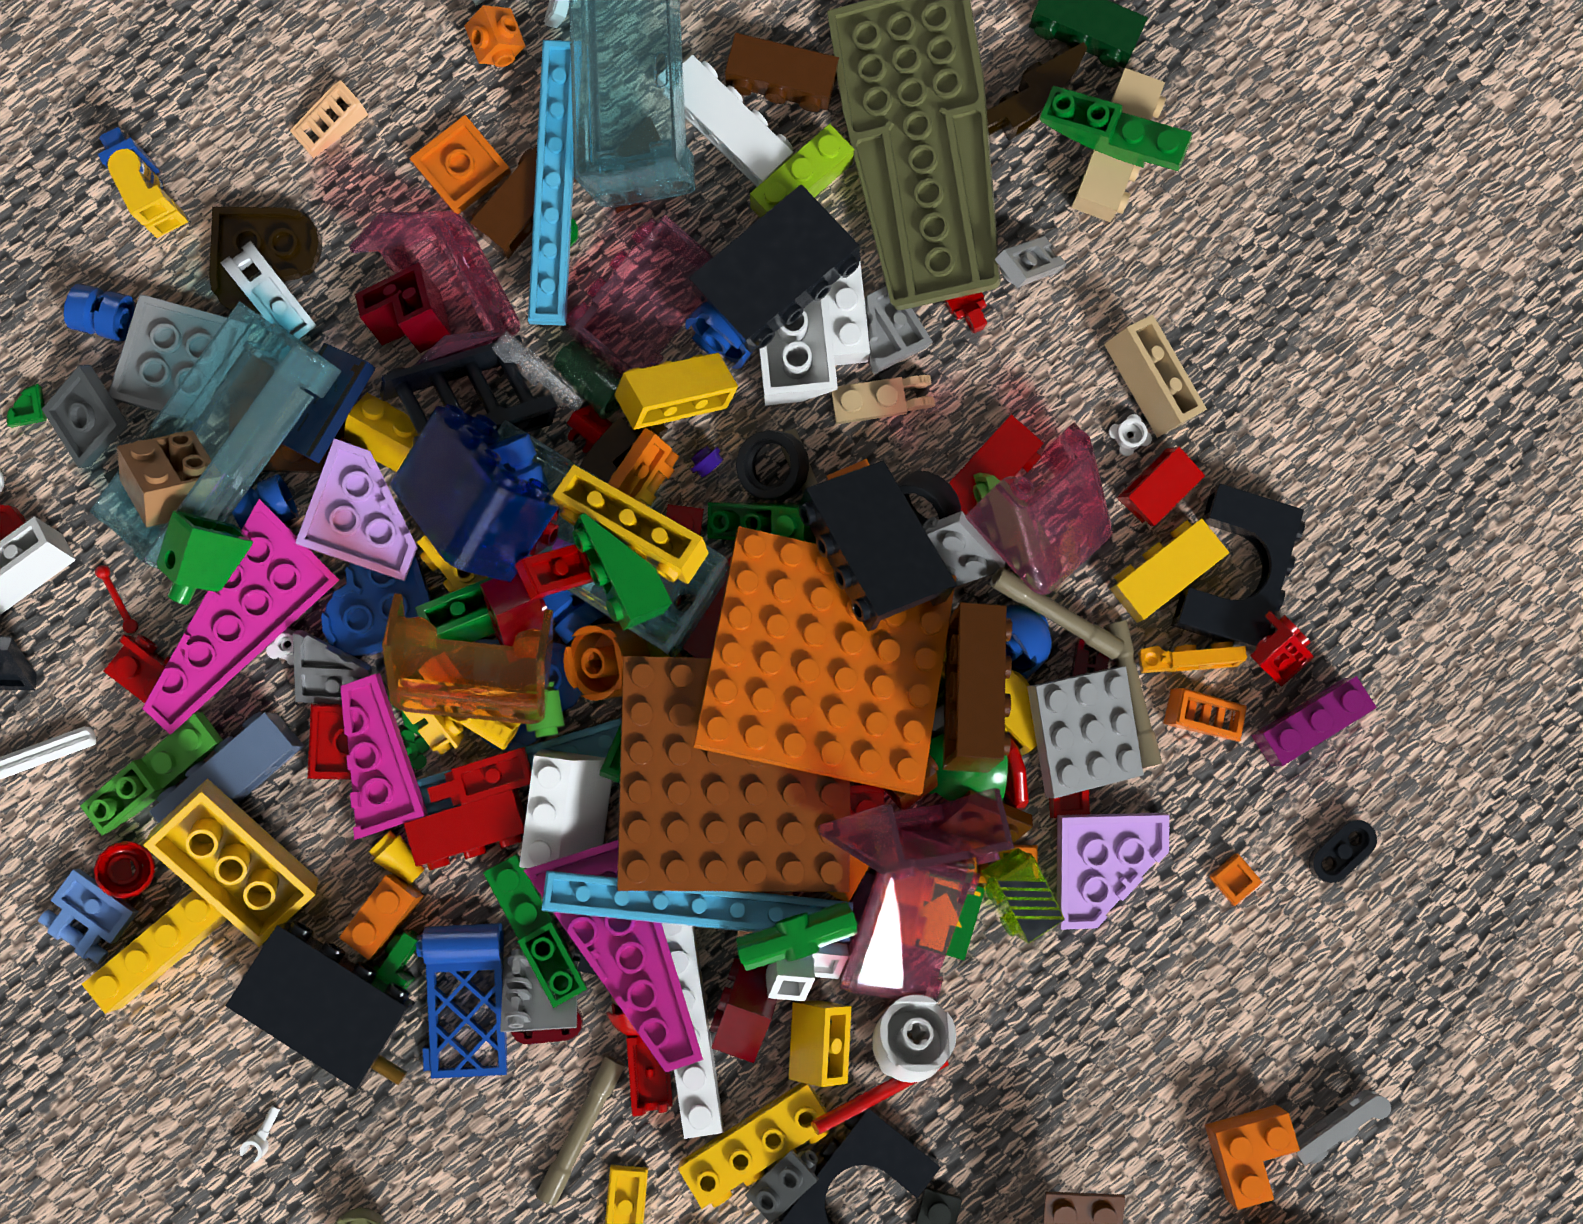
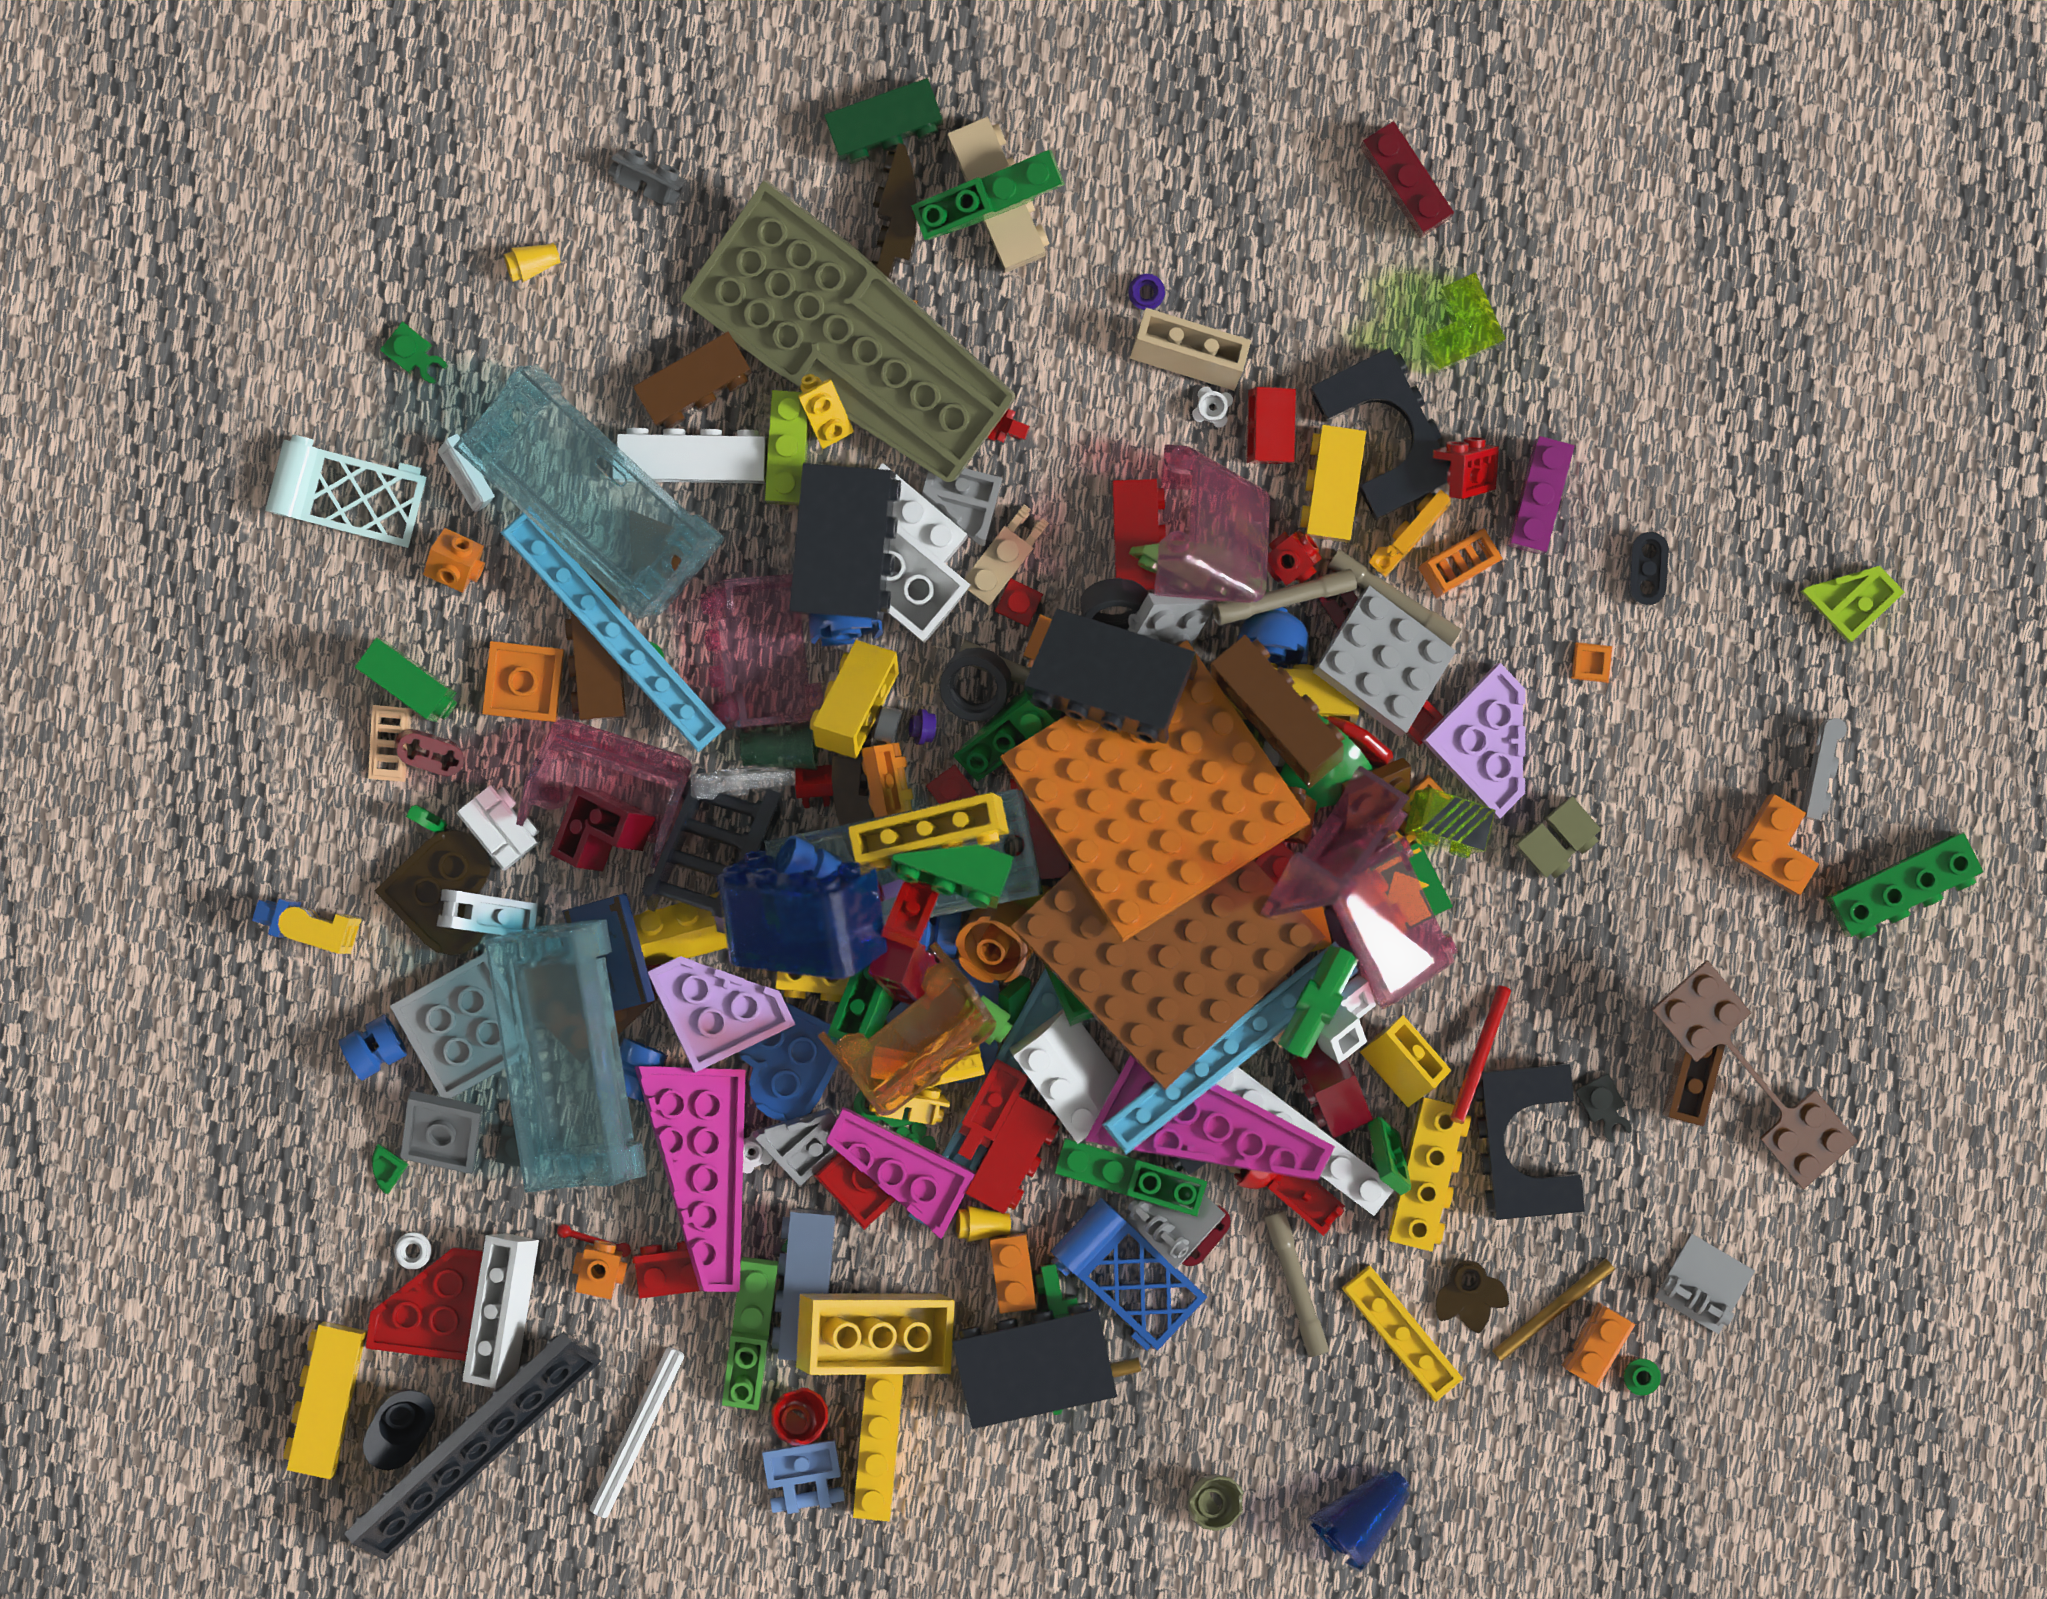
camera: 40 degrees left, 5 degrees up
(92, 622) = (594, 1282): none -> orange brick
(161, 473) = (558, 1114): medium nougat slope -> none
(200, 554) = (644, 1143): green torso -> none
(259, 1140) = (1076, 1501): white hand -> none
(298, 192) = (426, 819): none -> green tile
(332, 257) = (495, 827): none -> white brick
(339, 153) = (426, 760): none -> dark red beam
(377, 81) = (407, 680): none -> green brick
(581, 716) = (1014, 997): none -> green tile
(682, 432) = (888, 724): none -> dark grey beam
(739, 1104) = (1389, 1155): none -> green plate
(784, 1184) = (1472, 1180): dark grey hinge -> none
(852, 172) = (824, 410): none -> yellow hinge
(859, 440) = (1019, 602): none -> red plate
(928, 1024) = (1467, 975): white brick -> none
(1029, 262) = (1019, 353): light grey plate -> none
(1099, 600) = (1304, 552): none -> red brick
(1109, 987) = (1572, 826): none -> olive piece
(1165, 303) = (1146, 280): none -> dark purple plate
(1376, 551) = (1472, 326): none -> clear neon green brick
(1425, 405) = (1406, 179): none -> dark red brick
(1477, 1022) = (1854, 600): none -> lime wing

